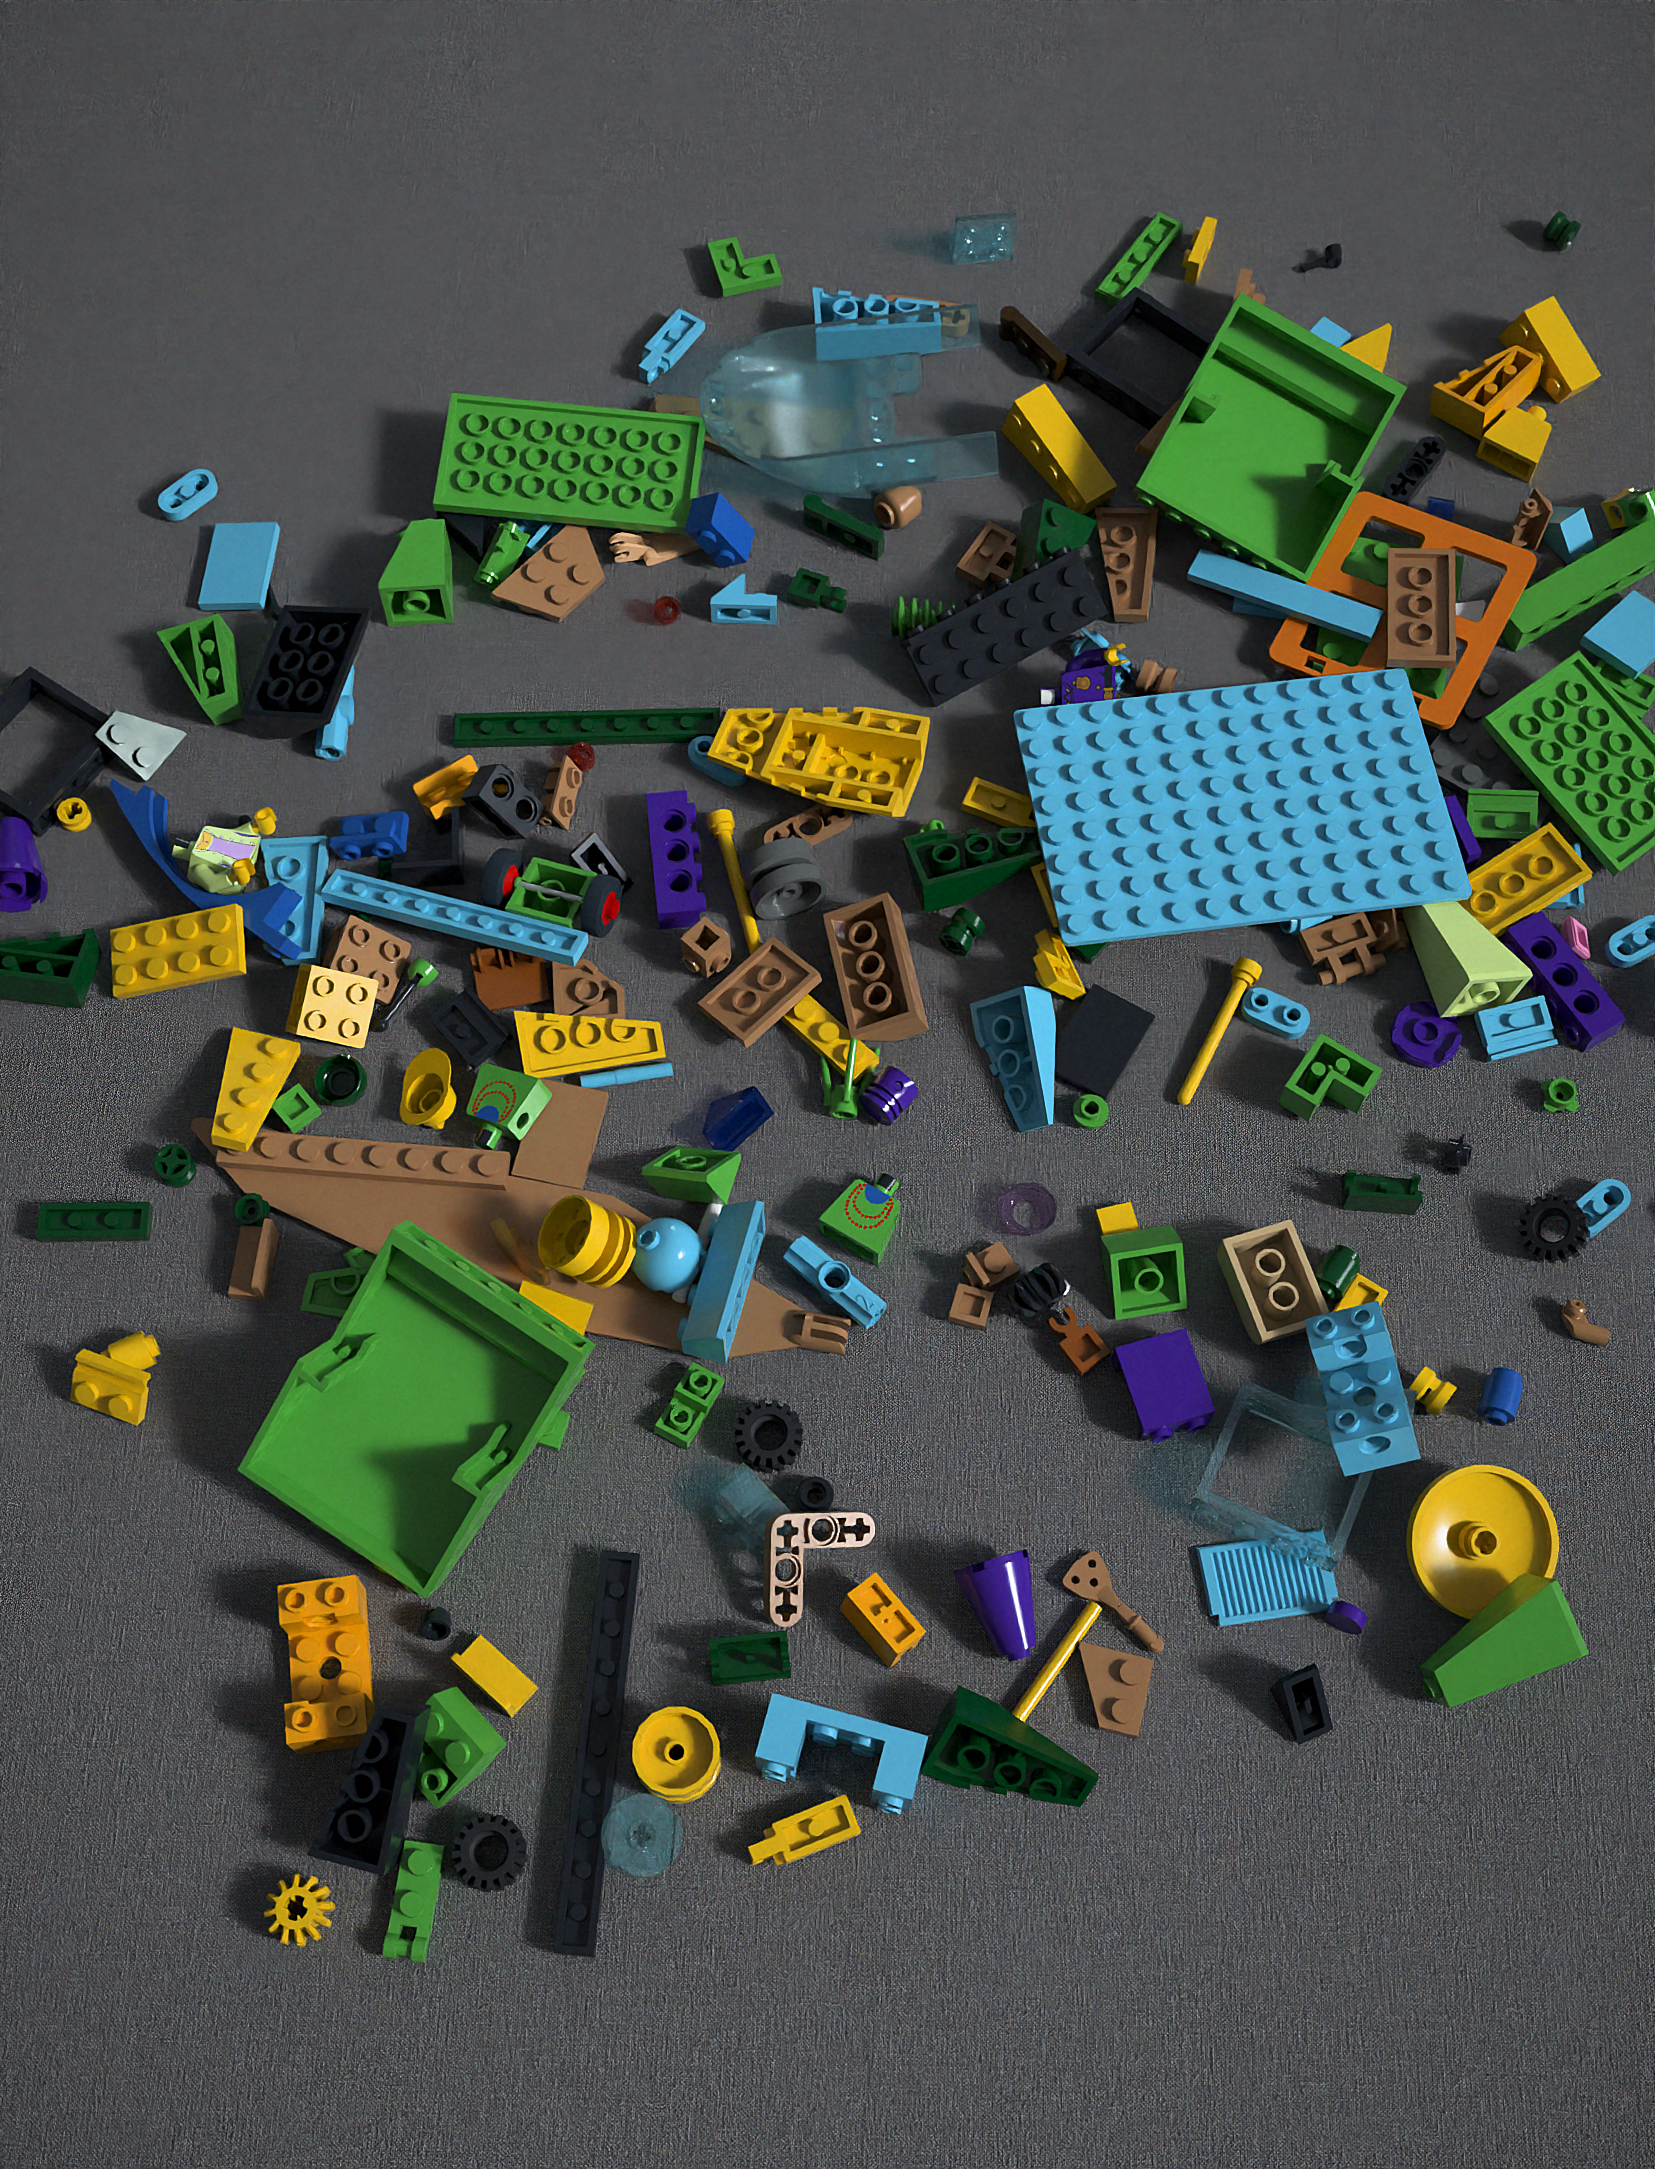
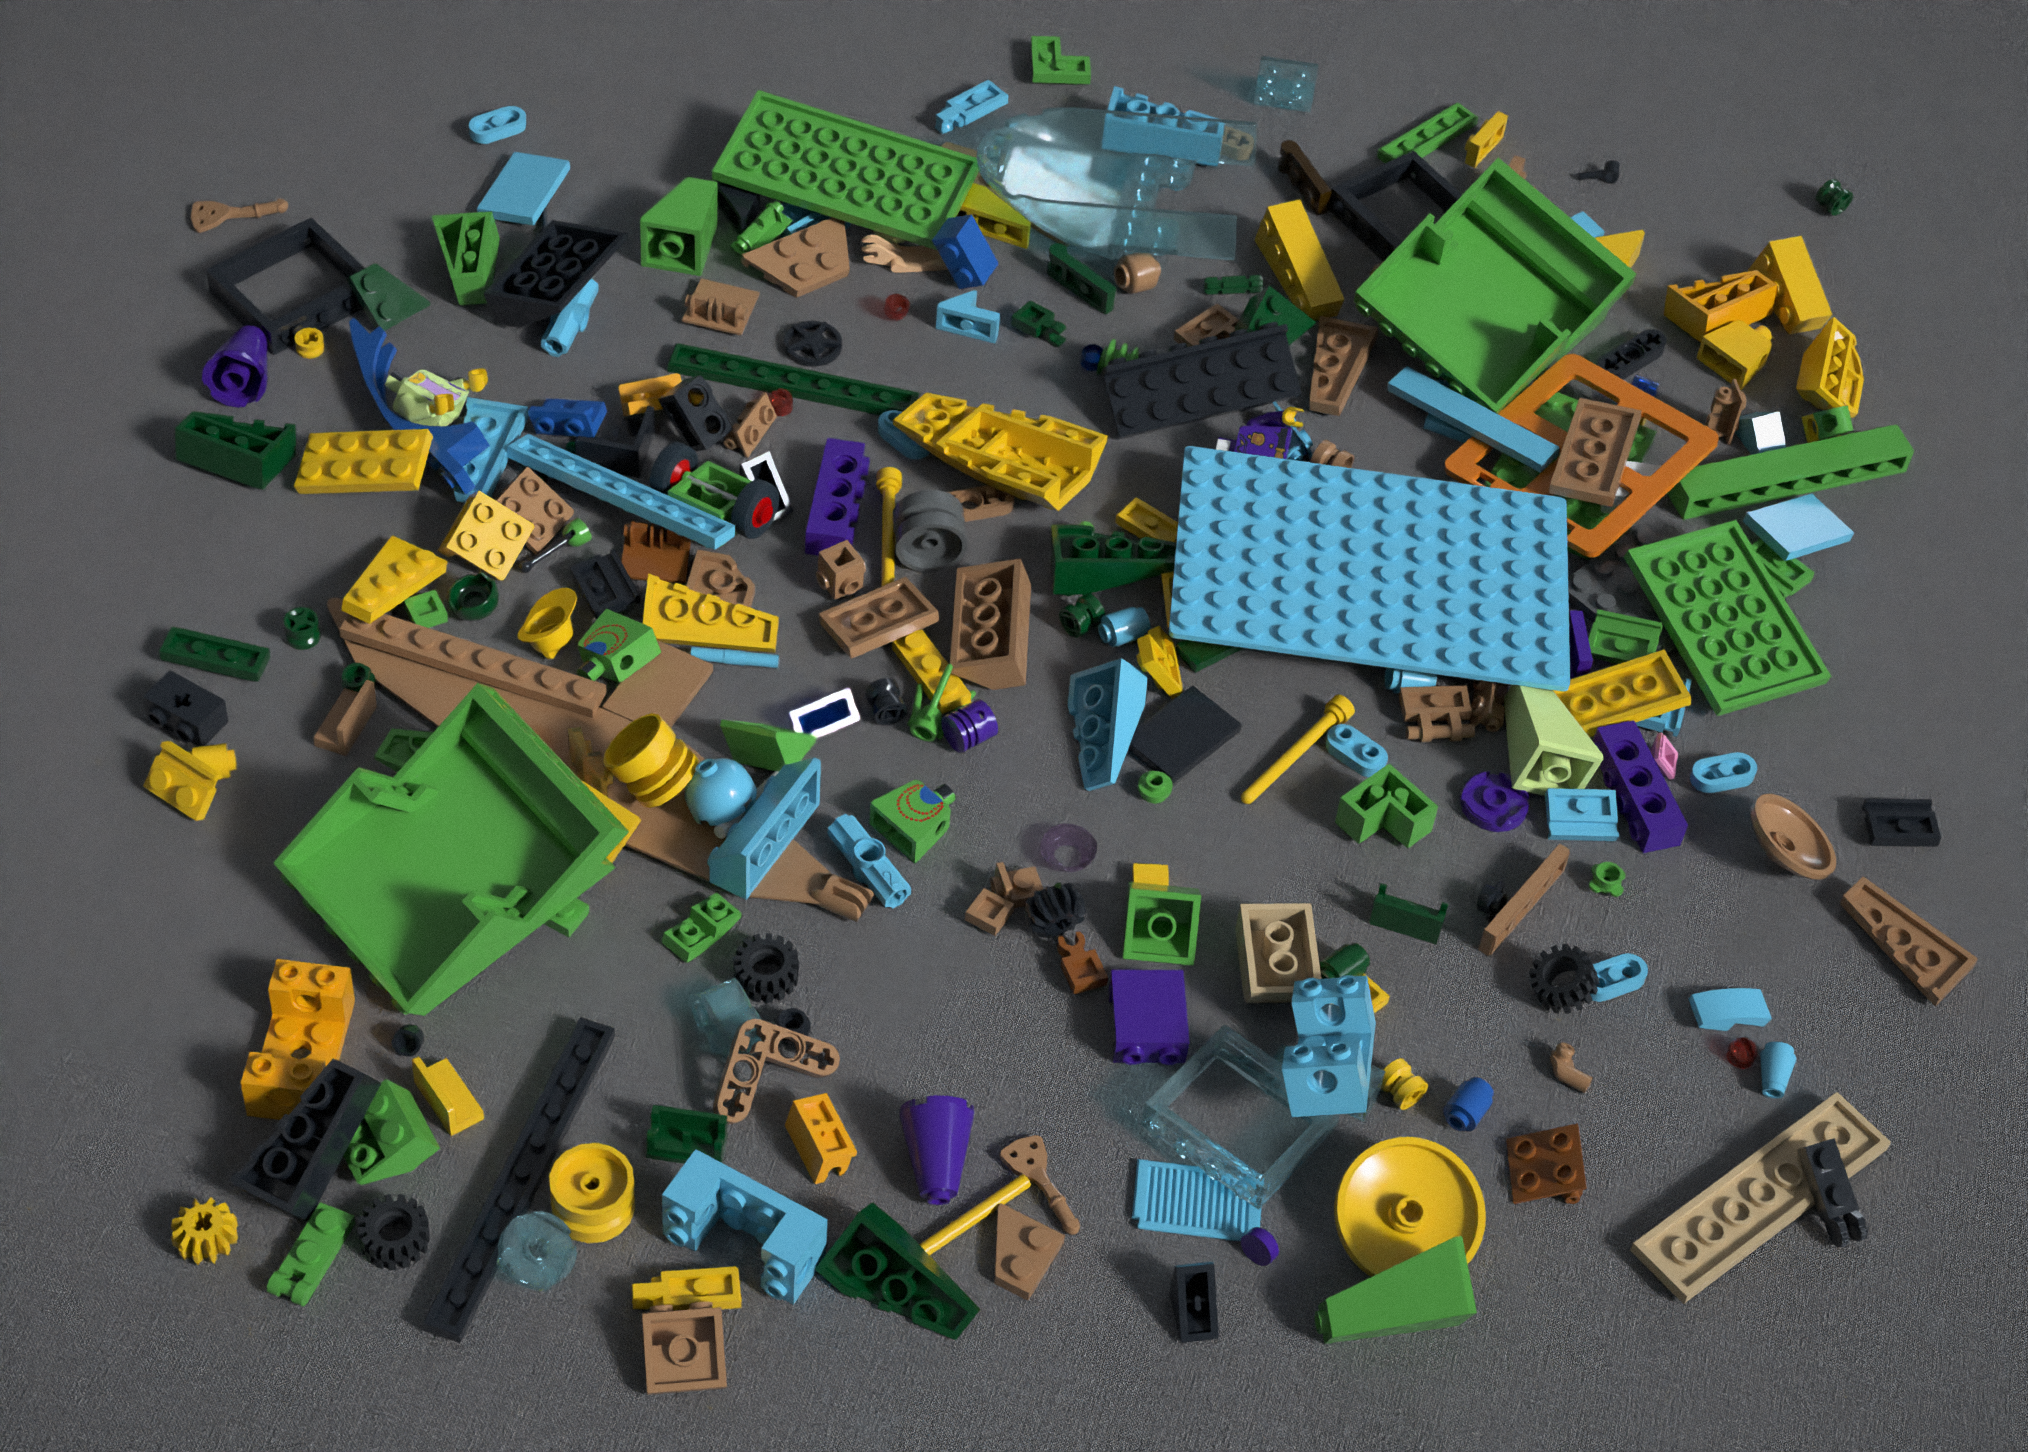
camera: 10 degrees right, 15 degrees down
(70, 1285) = (185, 709): none -> black brick
(486, 656) = (720, 306): none -> medium nougat hinge
(593, 674) = (813, 343): none -> black wheel
(732, 476) = (995, 217): none -> yellow slope
(797, 1091) = (886, 703): none -> black wheel
(820, 1904) = (684, 1349): none -> medium nougat plate
(880, 617) = (1090, 356): none -> clear blue hinge
(996, 491) = (1233, 284): none -> dark green axle
(1007, 933) = (1124, 626): none -> medium azure brick
(1489, 1145) = (1524, 900): none -> medium nougat tile
(1593, 1442) = (1547, 1165): none -> dark orange hinge
(1616, 442) = (1832, 370): none -> yellow wedge

